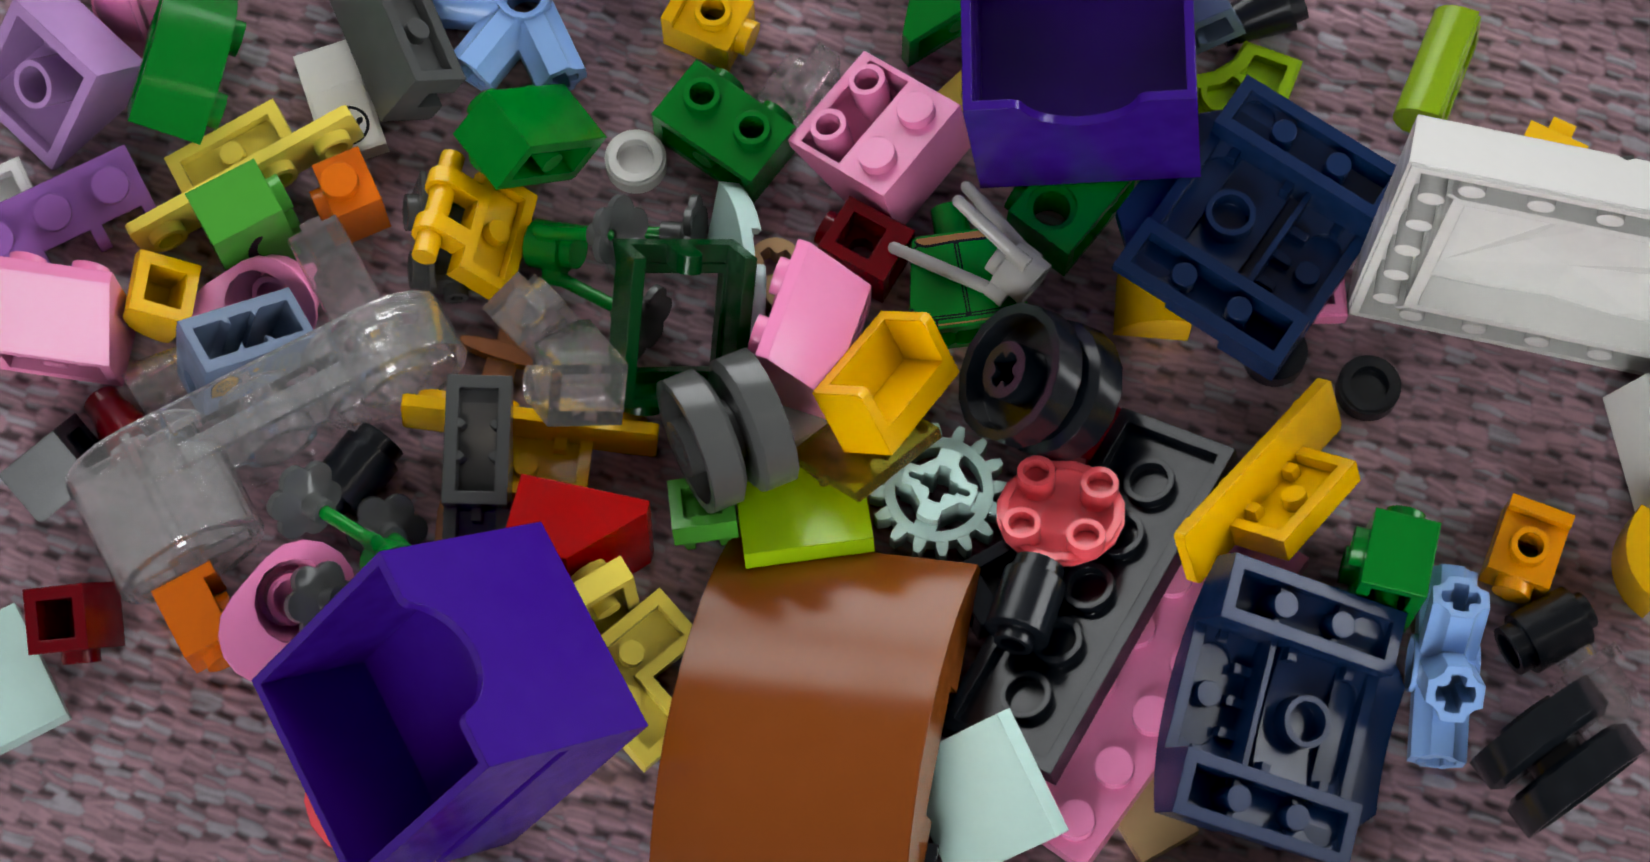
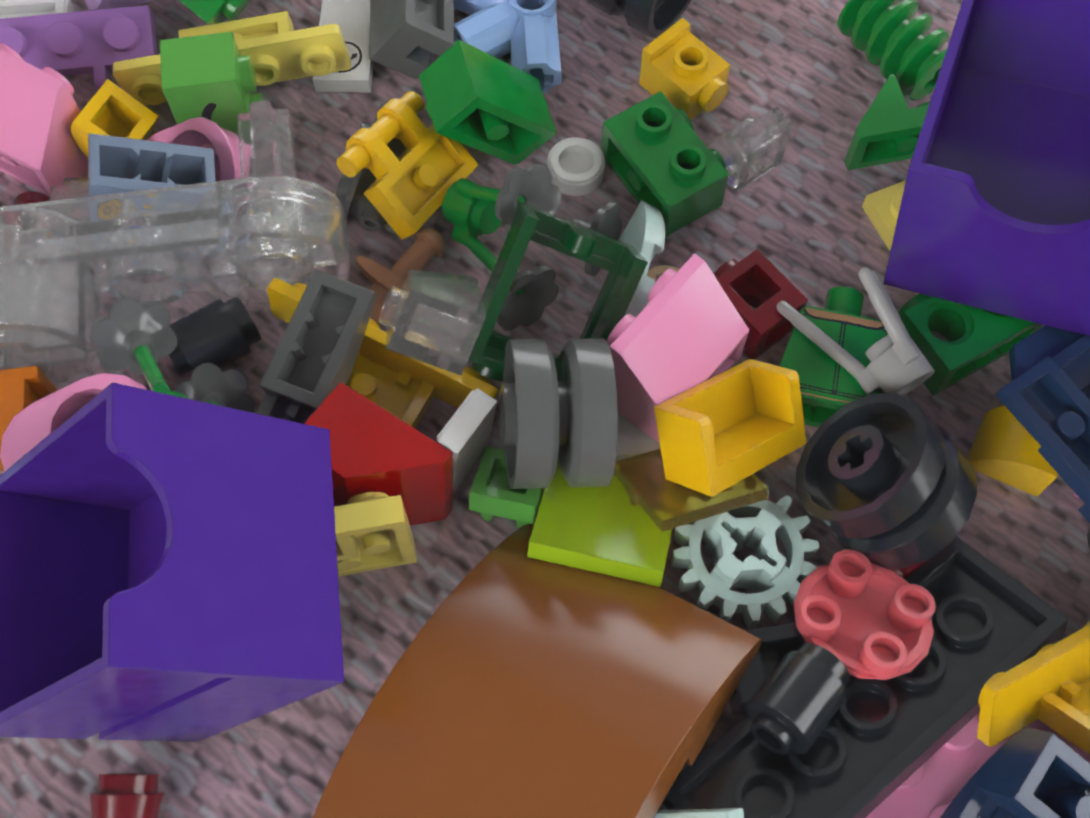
camera: 20 degrees right, 5 degrees down
(349, 194) = (315, 108): orange brick -> none
(528, 311) = (419, 244): clear brick -> none
(643, 648) = (377, 607): light yellow plate -> none
(650, 470) = (468, 433): none -> white tile
(883, 138) = (807, 213): bright pink slope -> none

